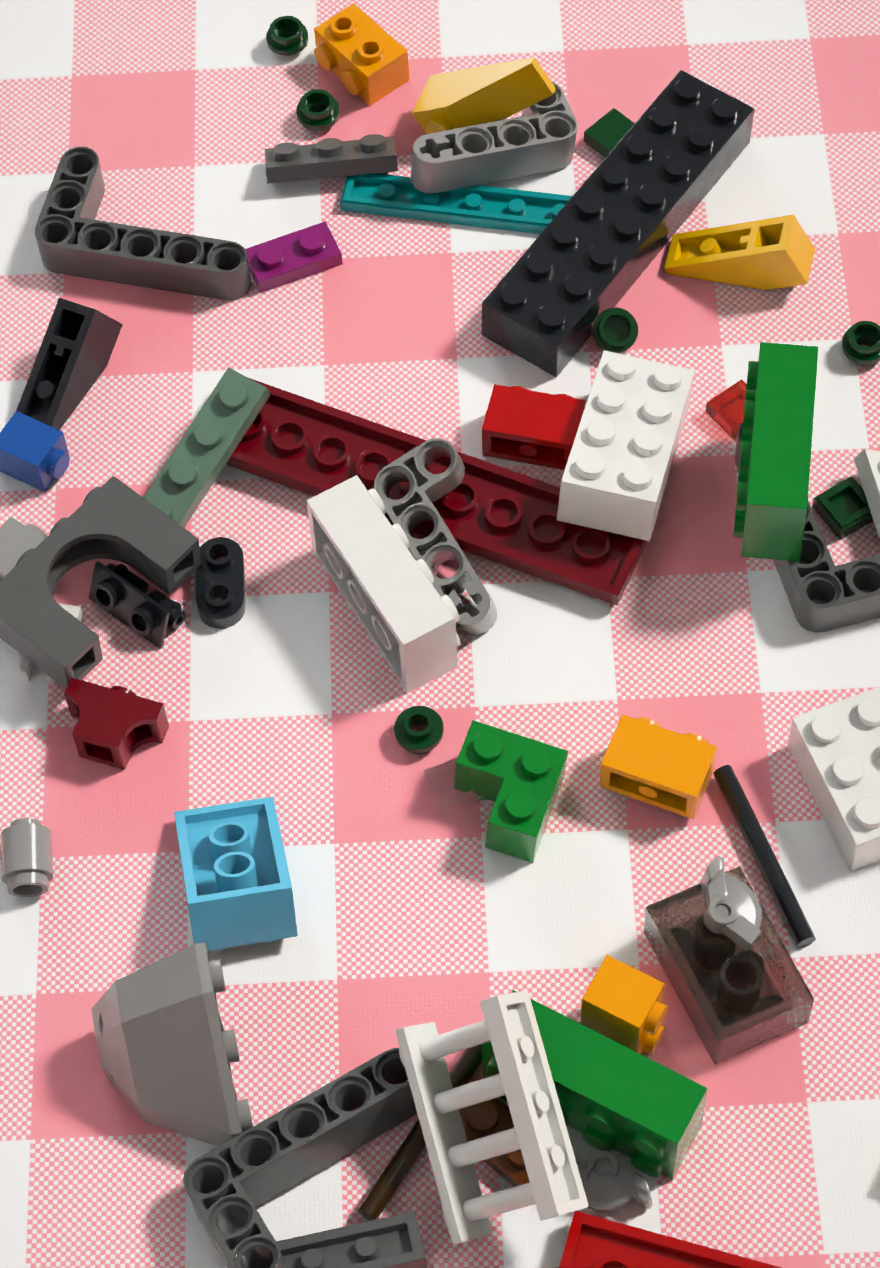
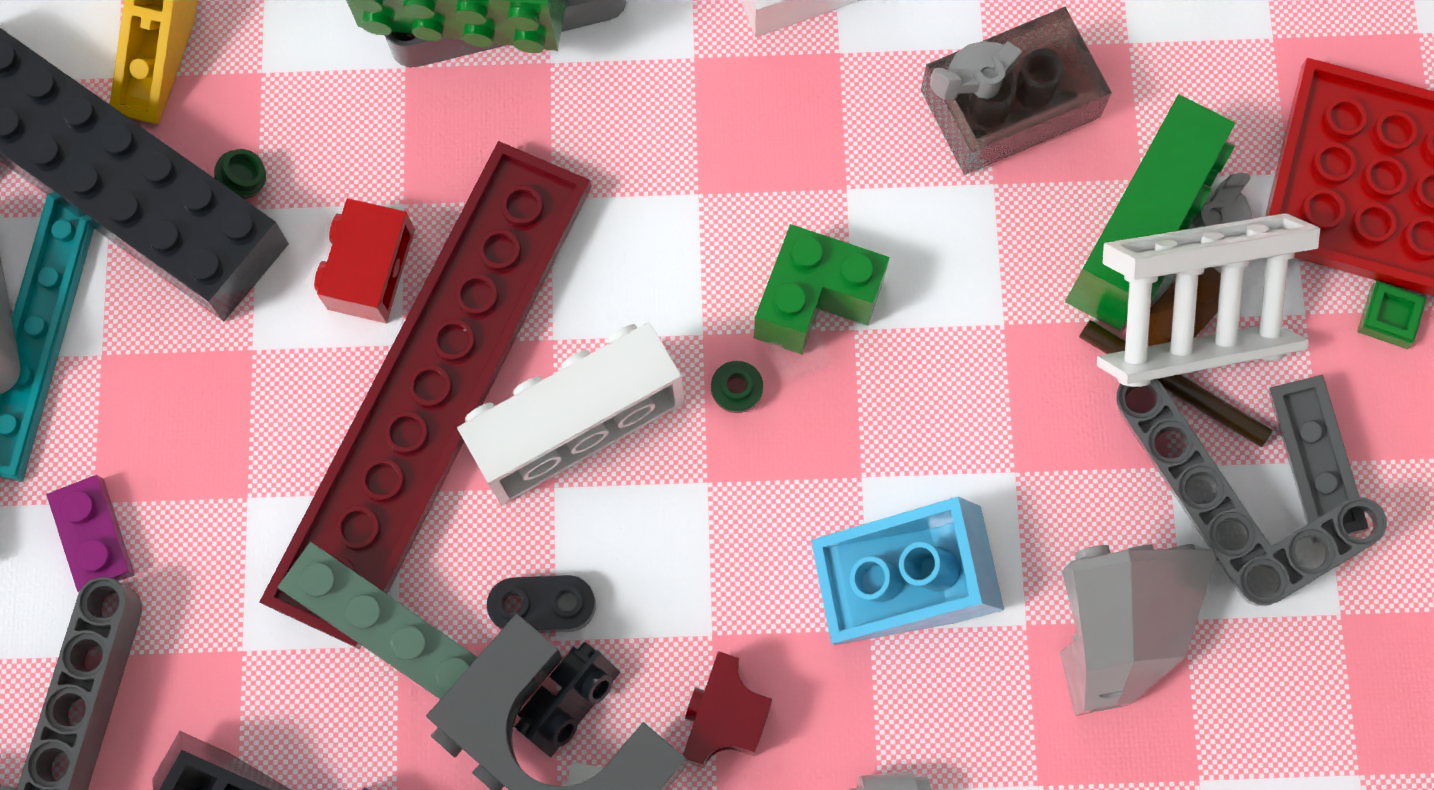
camera: 90 degrees left, 15 degrees up
(440, 544) = (524, 351): light grey beam -> none
(625, 445) = (409, 156): white brick -> none
(625, 1006) = (1072, 183): light orange brick -> none
(658, 765) = (793, 145): light orange brick -> none
(728, 408) = (354, 56): clear red tile -> none
(764, 856) = (879, 62): black bar -> none

